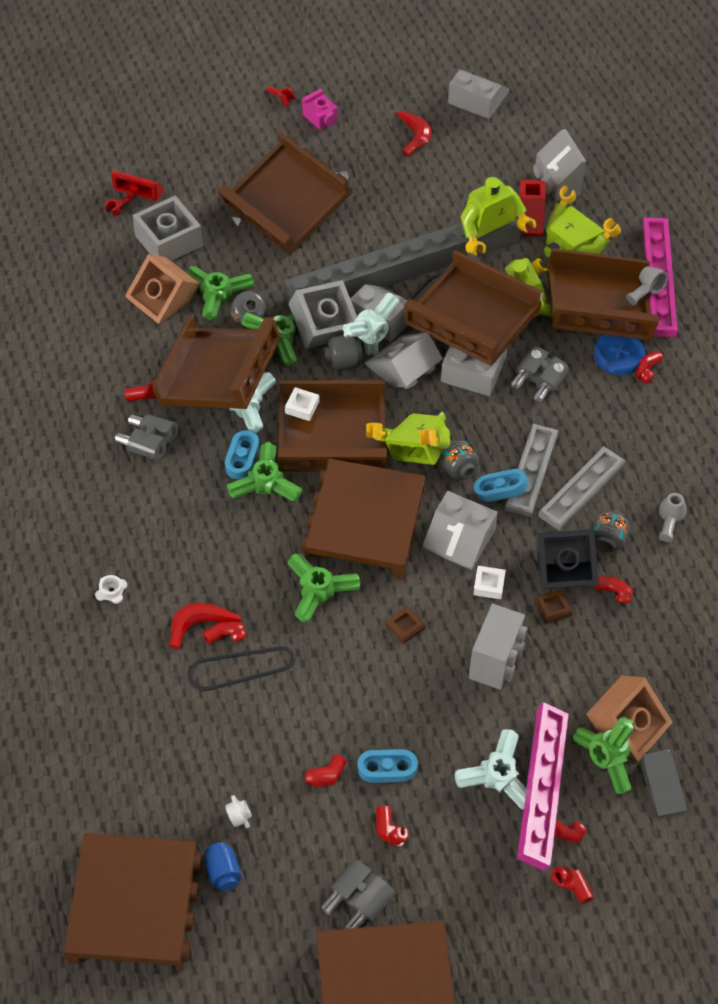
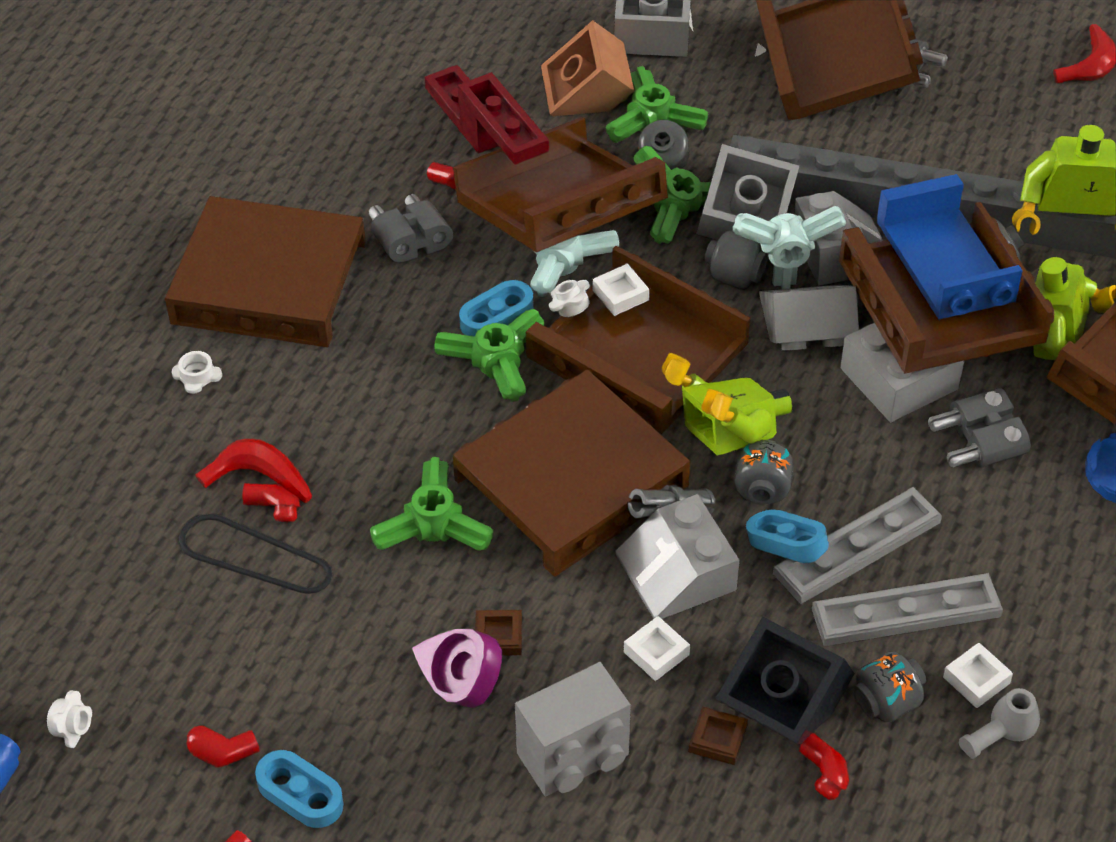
camera: 40 degrees right, 5 degrees down
(96, 507) = (264, 271): none -> reddish brown panel
(134, 343) = (486, 114): none -> dark red bracket
(278, 424) = (570, 298): none -> white plate
(406, 652) = (461, 665): none -> magenta piece
(431, 503) = (667, 495): none -> dark grey pin
(458, 288) = (943, 249): none -> blue panel
(642, 499) = (977, 675): none -> white plate

